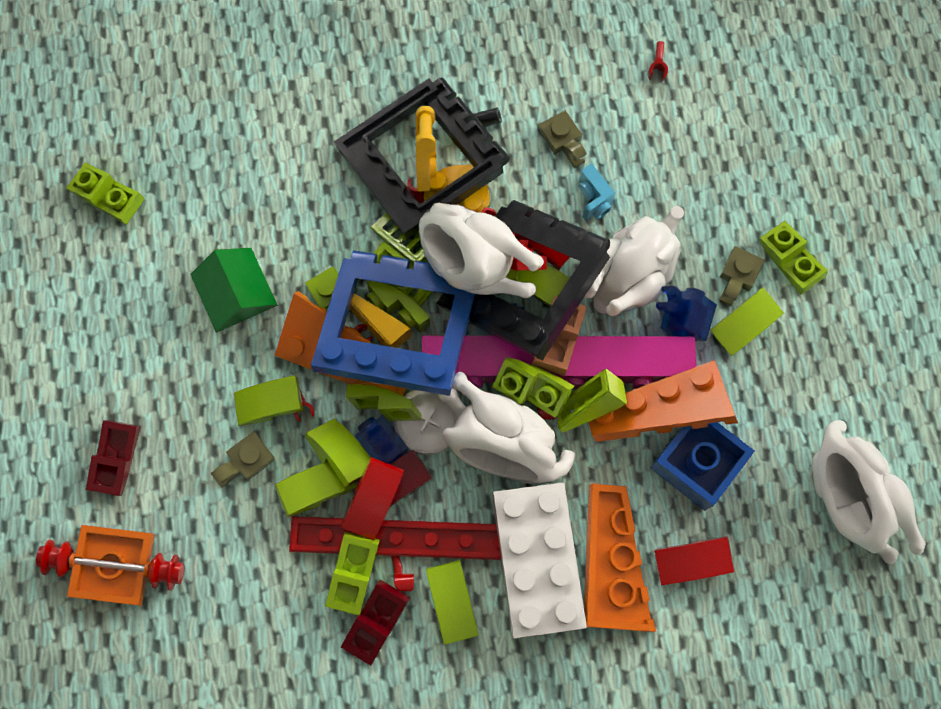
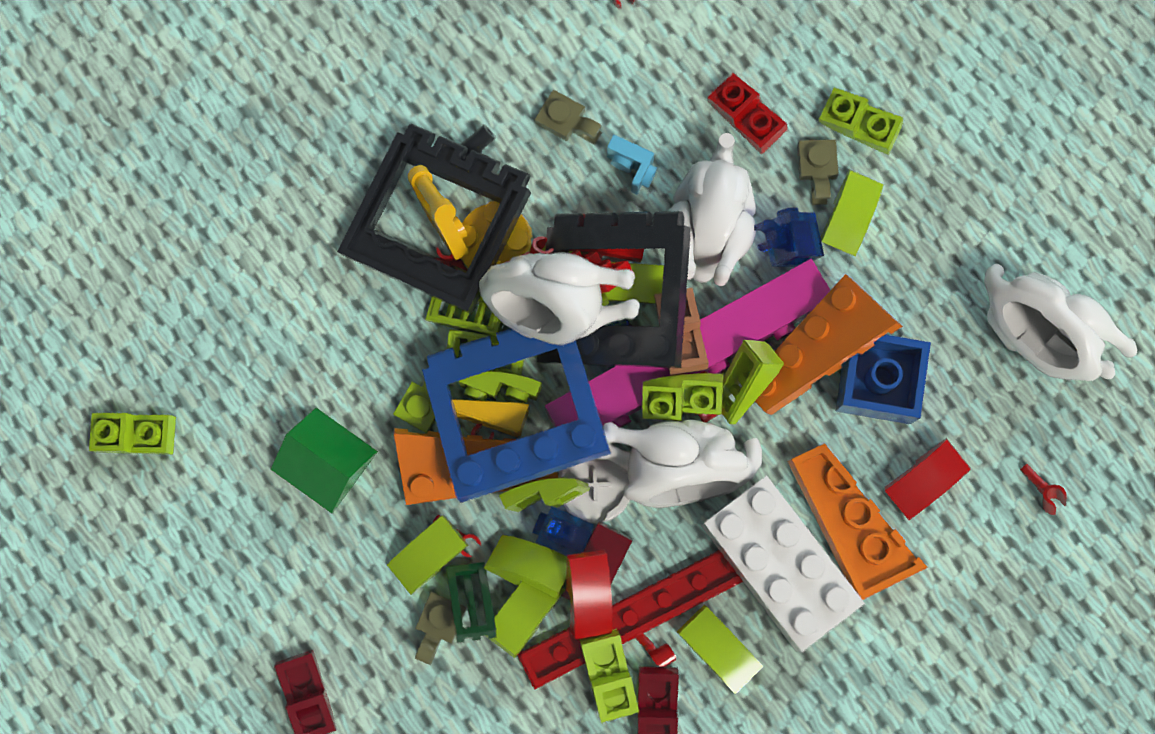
camera: 25 degrees left, 5 degrees up
(269, 476) = (475, 630): none -> dark green tile
(705, 205) = (746, 113): none -> red slope
(789, 626) = (1048, 491): none -> red hand

